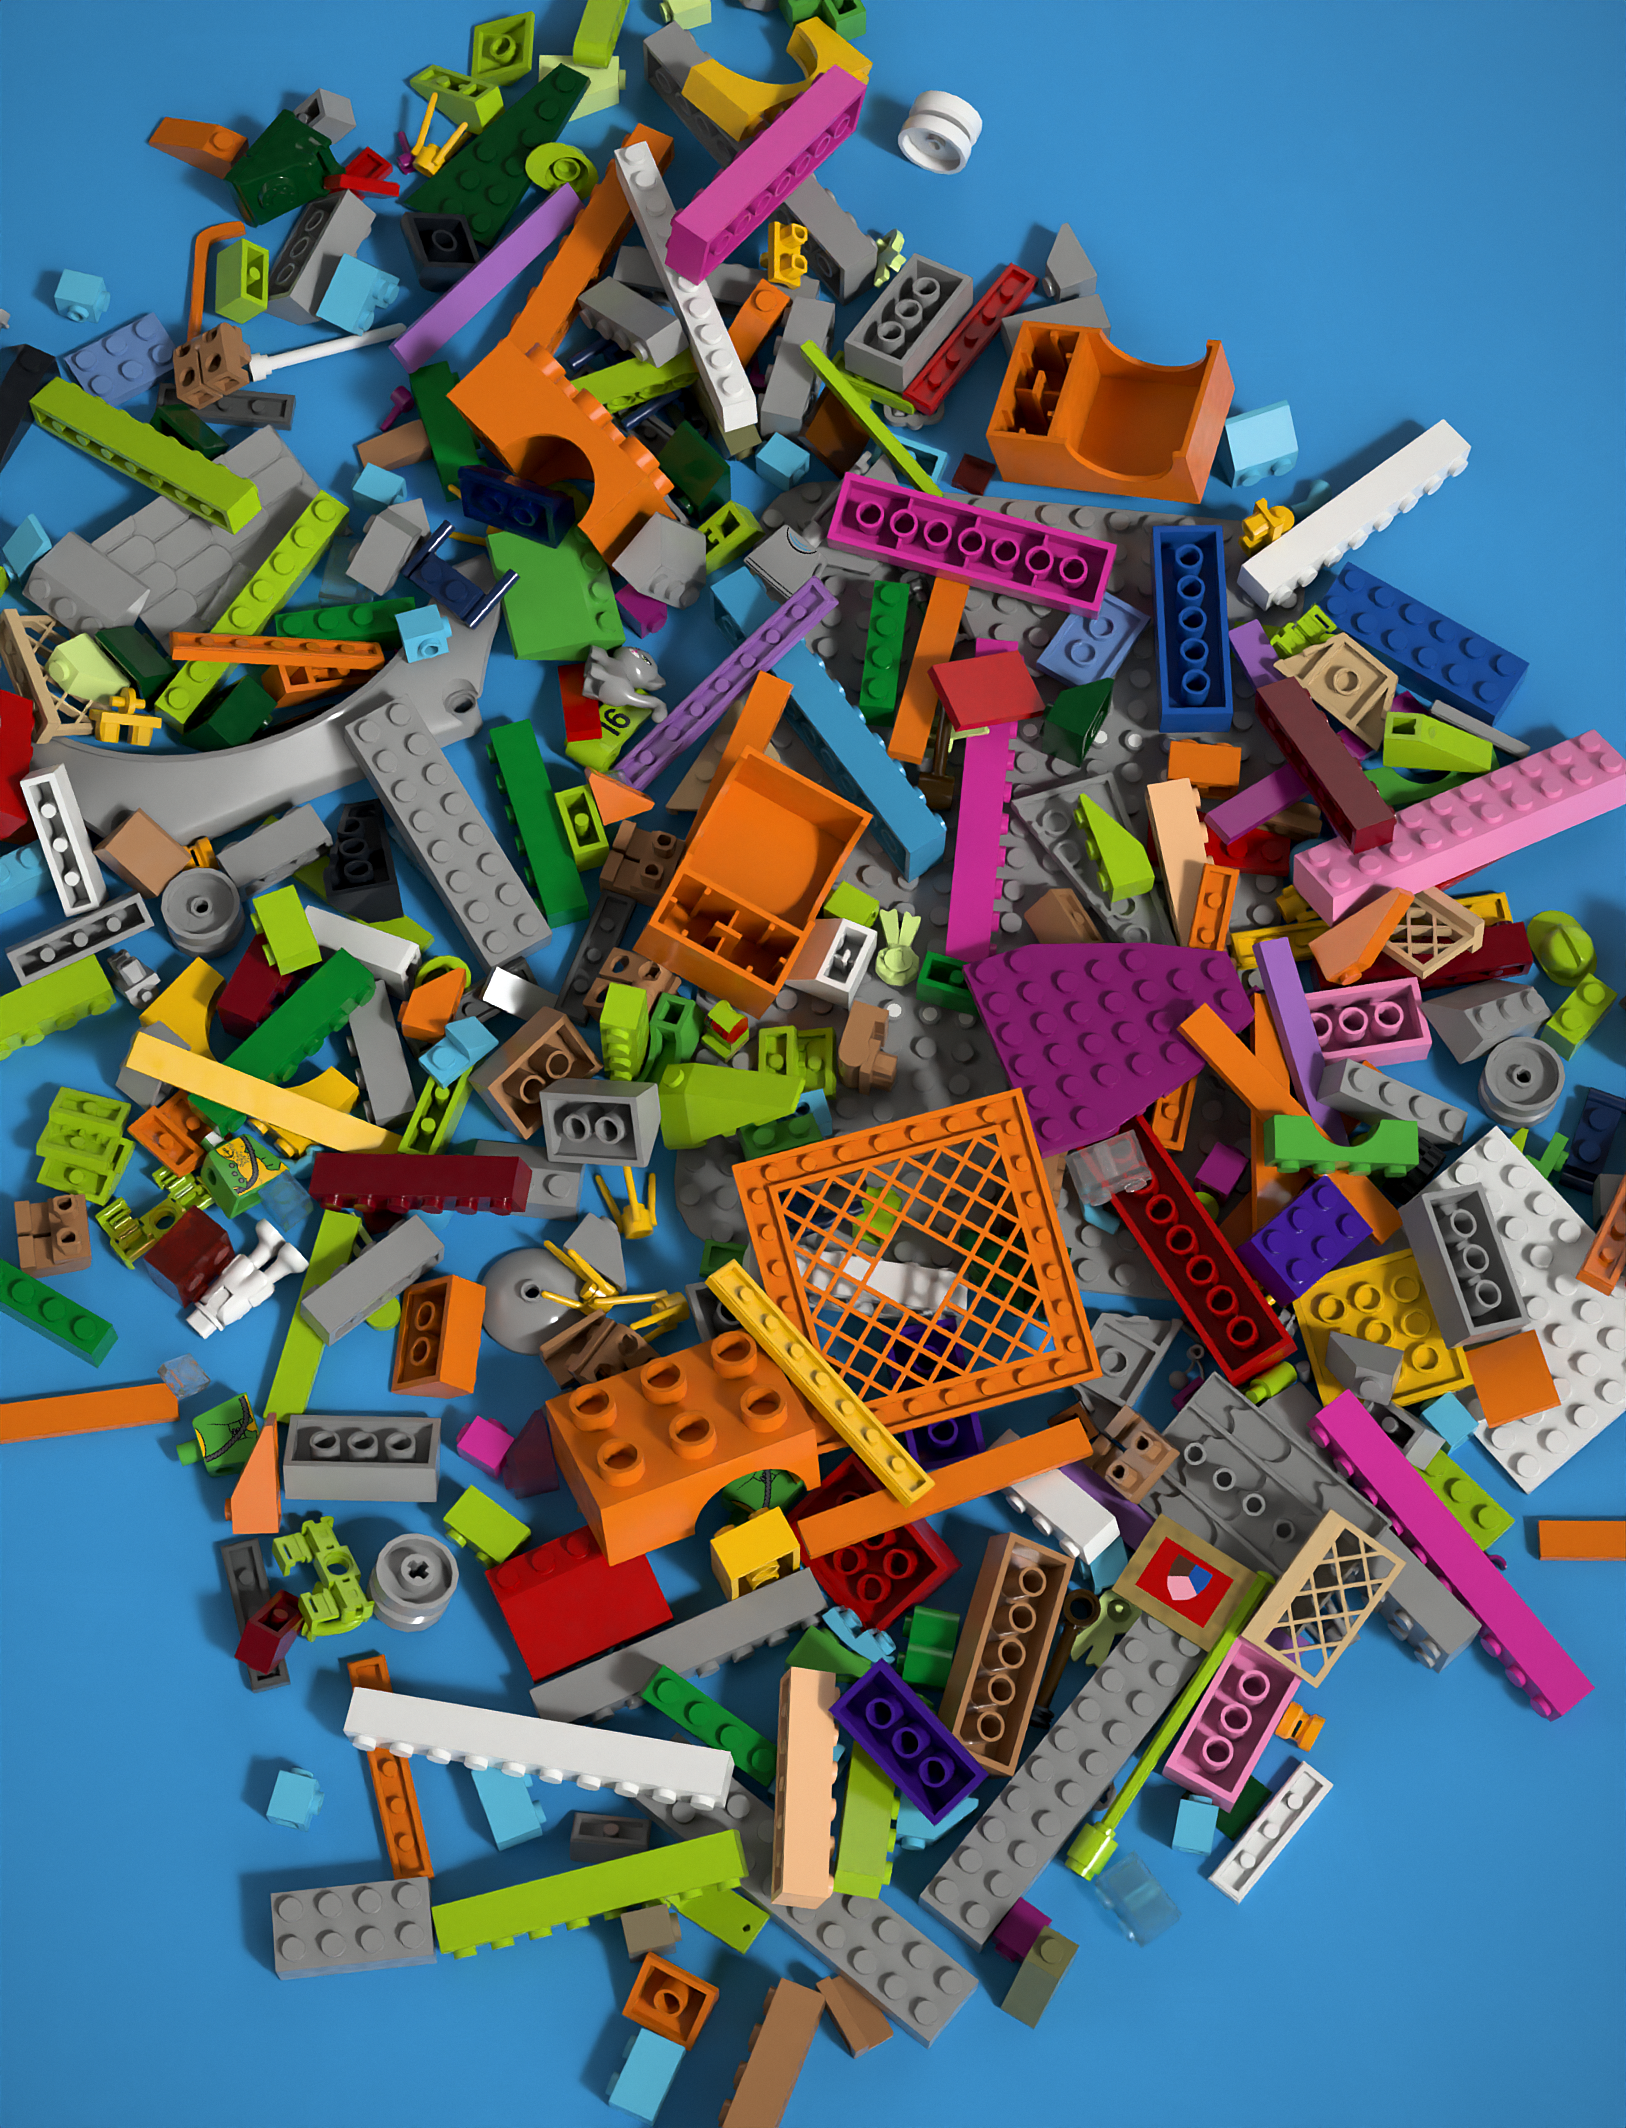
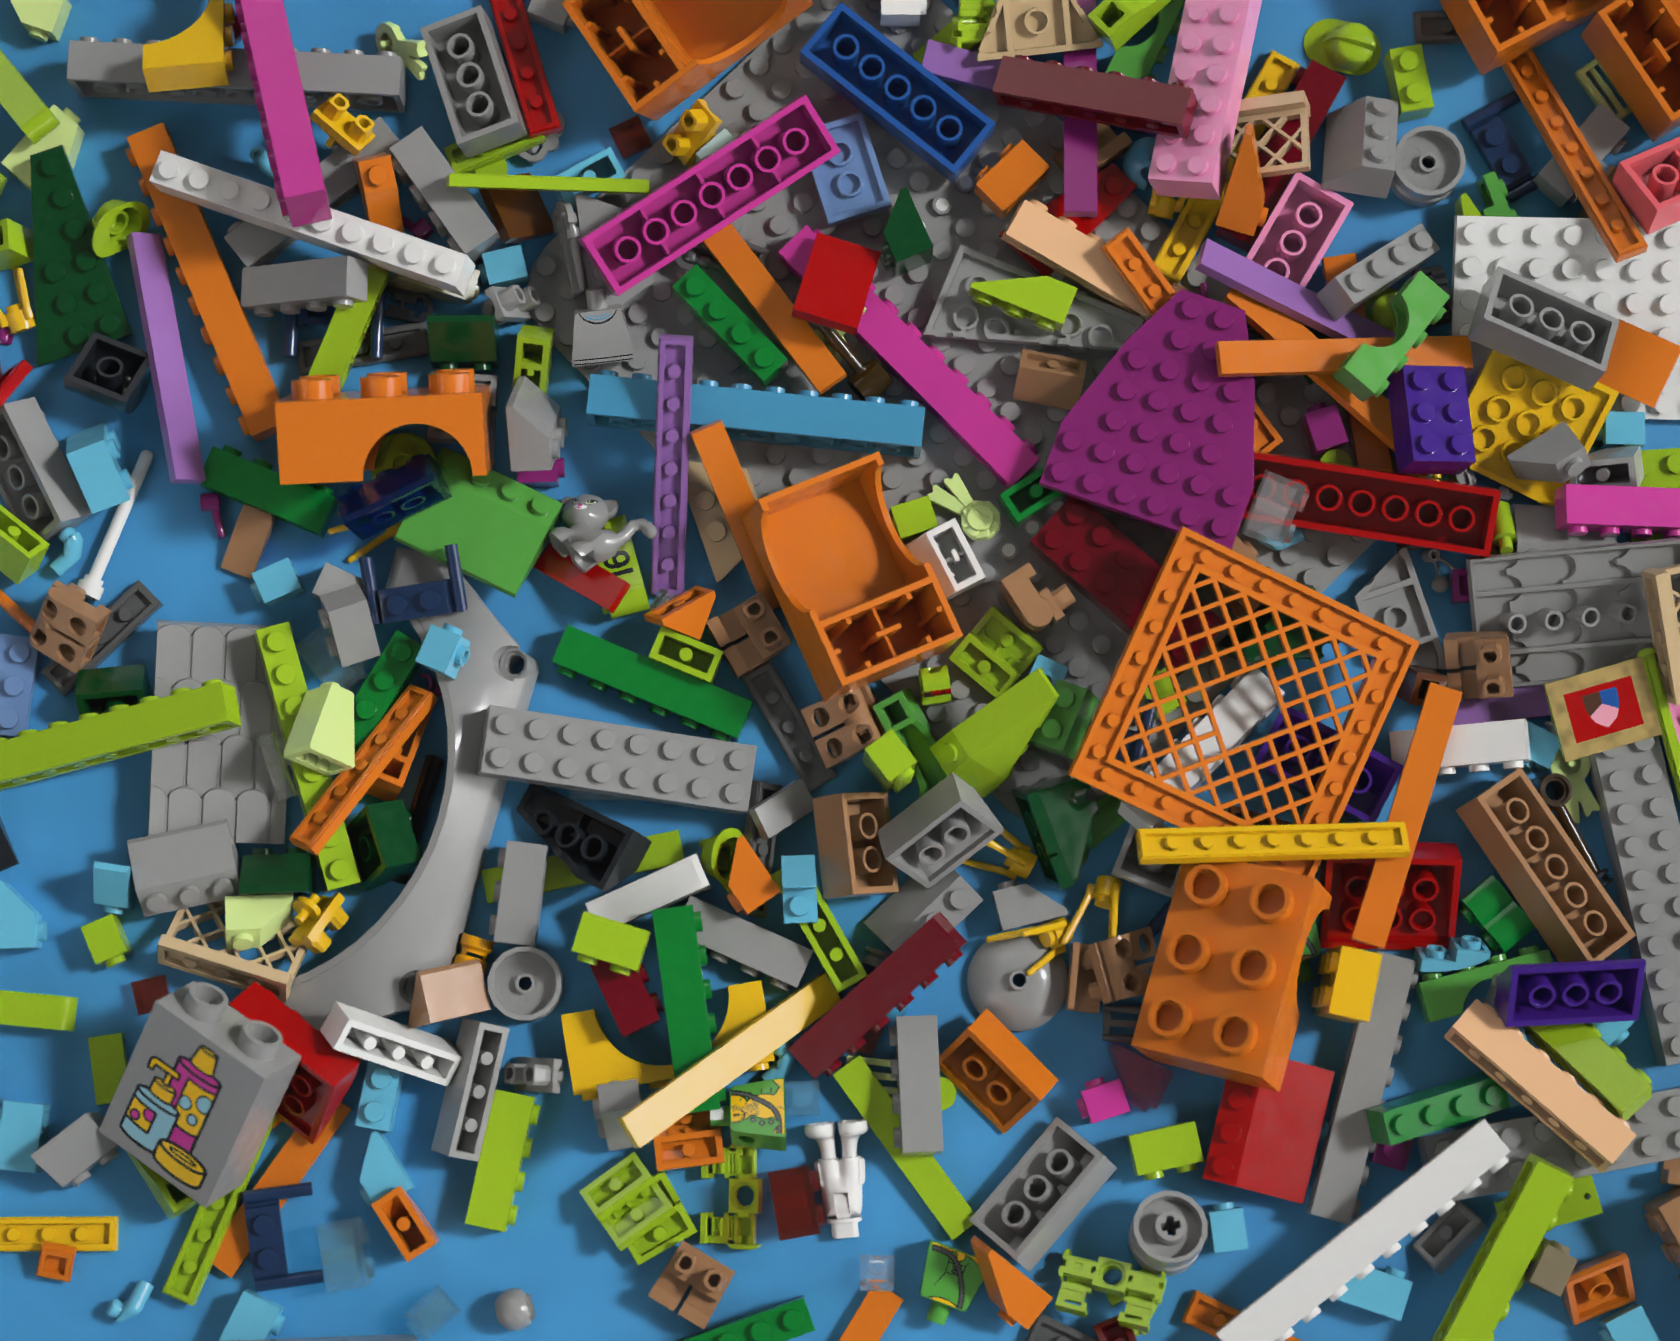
camera: 55 degrees left, 15 degrees up
(277, 333) = (71, 551): none -> medium azure arm
(280, 596) = (324, 730): none -> yellowish green slope
(459, 1635) = (1226, 1228): none -> medium azure brick
(647, 1723) = (1392, 1156): none -> magenta plate
(690, 1217) = (1058, 826): none -> dark green piece
(755, 484) = (510, 303): none -> light grey hips
(944, 1073) = (1110, 571): none -> dark red brick
(1022, 501) = (694, 131): none -> yellow hips

